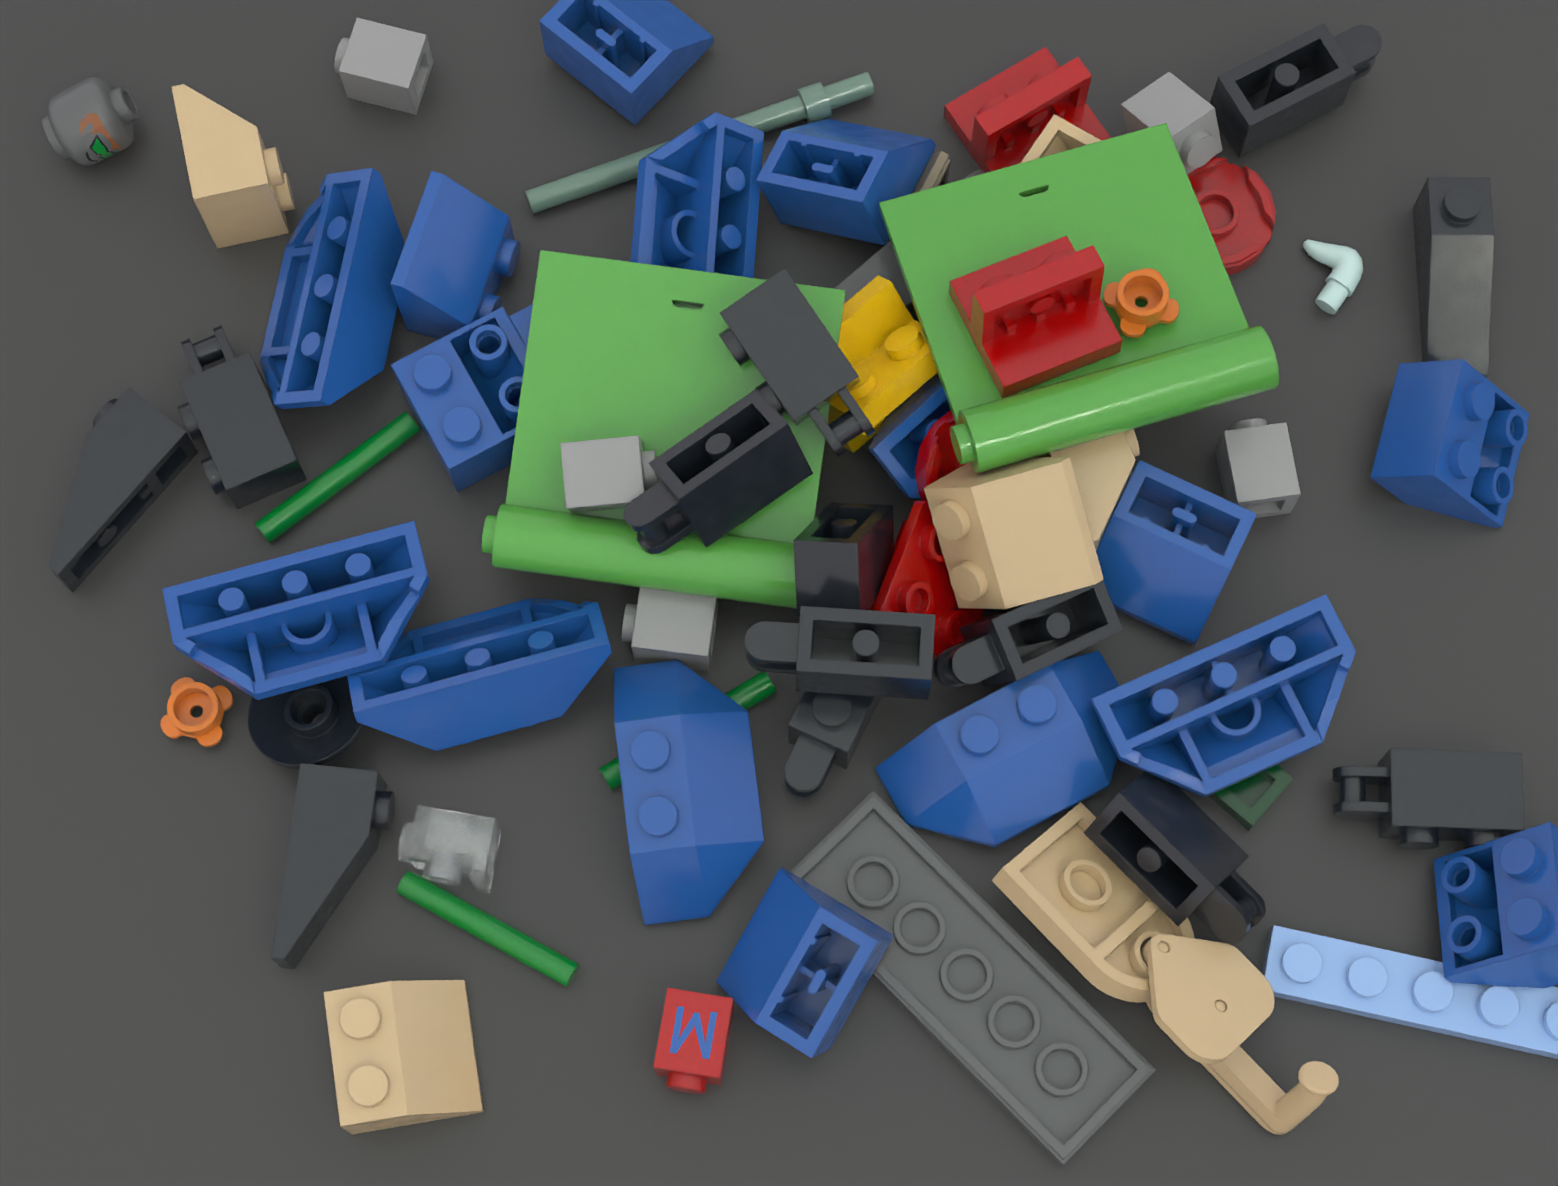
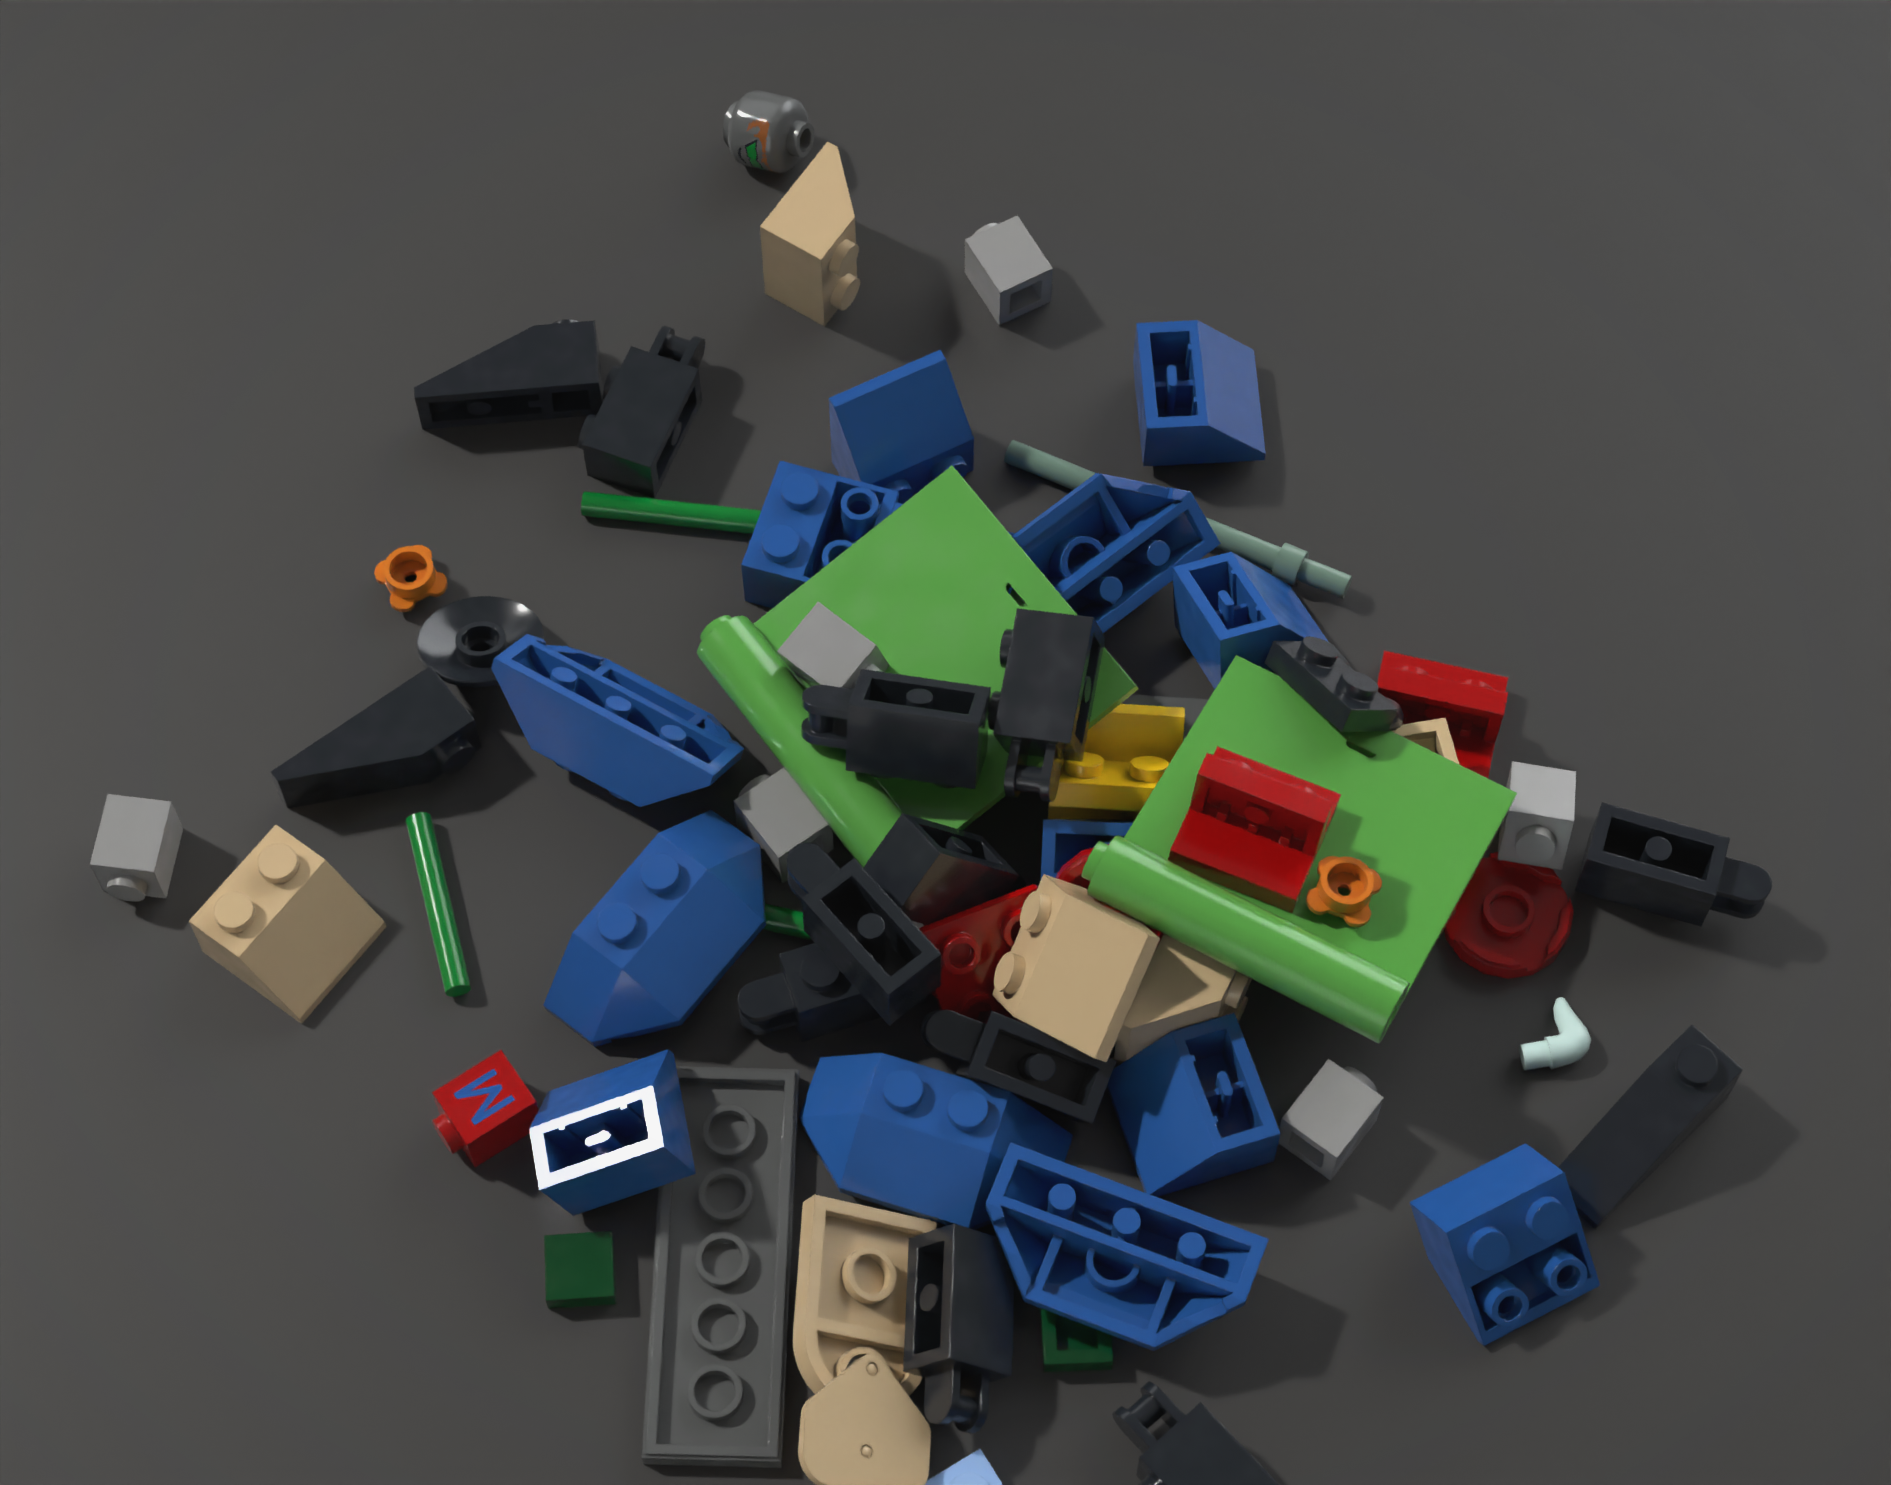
camera: 45 degrees right, 10 degrees down
(224, 1112) = (136, 847): none -> light grey brick
(302, 612) = (539, 567): blue wedge -> none
(334, 294) = (782, 401): blue wedge -> none
(451, 846) = (472, 824): clear brick -> none
(876, 1081) = (579, 1269): none -> dark green tile
(972, 163) = (1332, 686): none -> black plate

